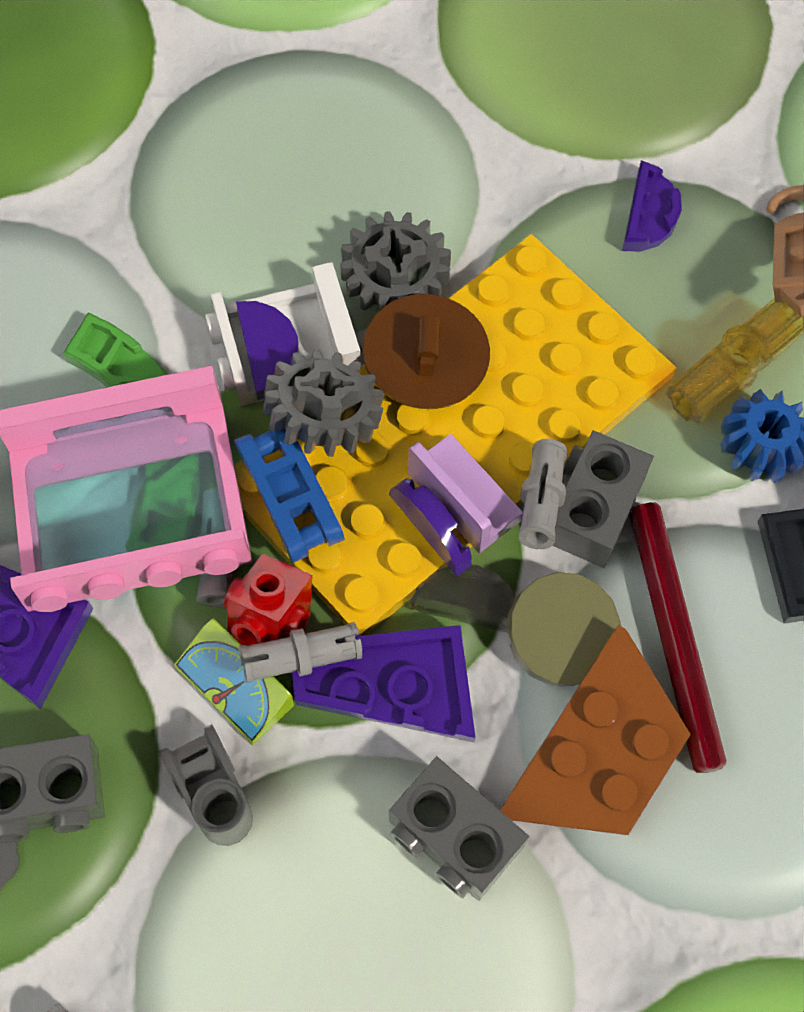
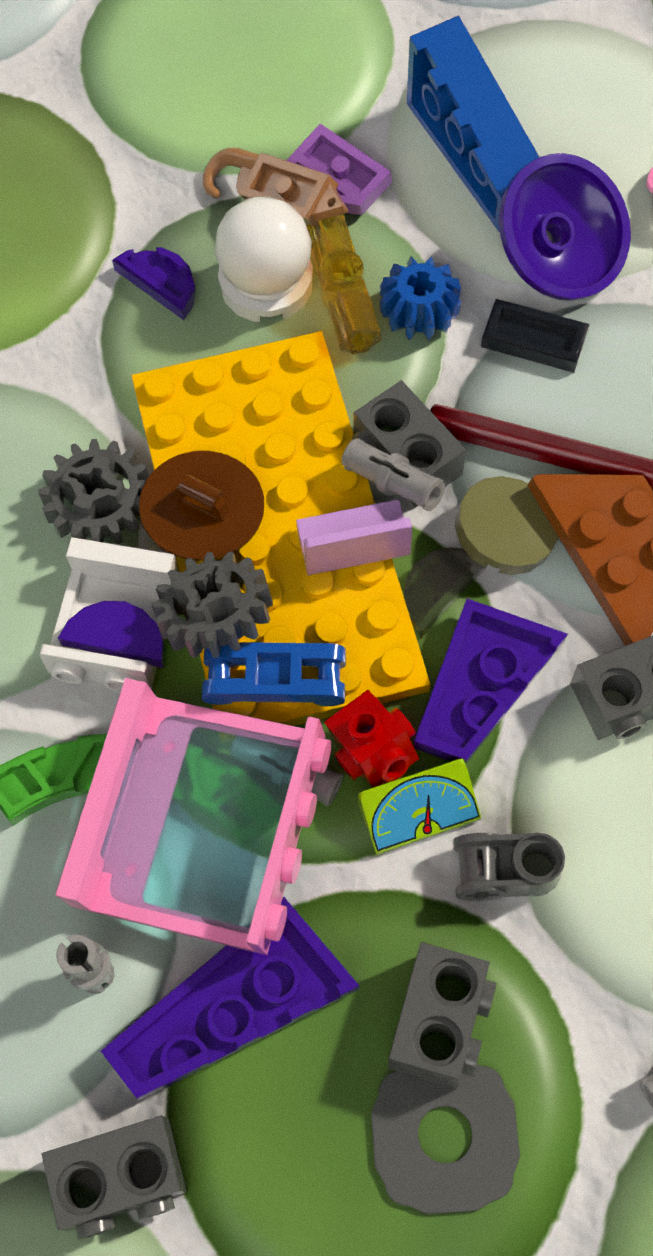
camera: 60 degrees left, 0 degrees up
(300, 652) = (434, 730): light grey pin -> none
(433, 523) = (367, 572): dark purple tile -> none
(714, 276) = (264, 259): none -> white tile

